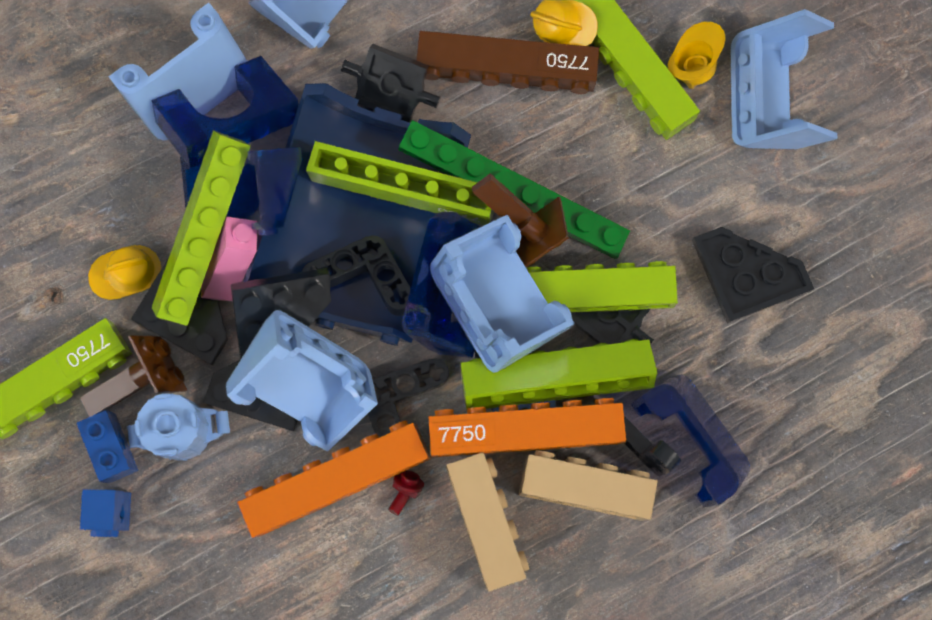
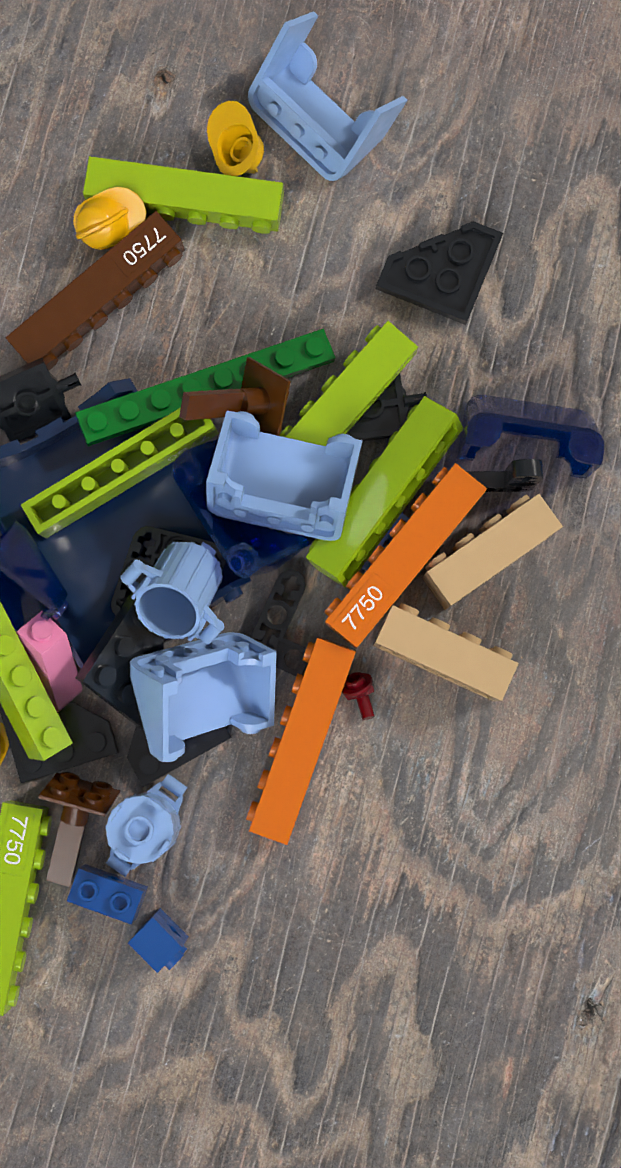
camera: 40 degrees left, 5 degrees up
(353, 298) = (178, 592): none -> light blue container

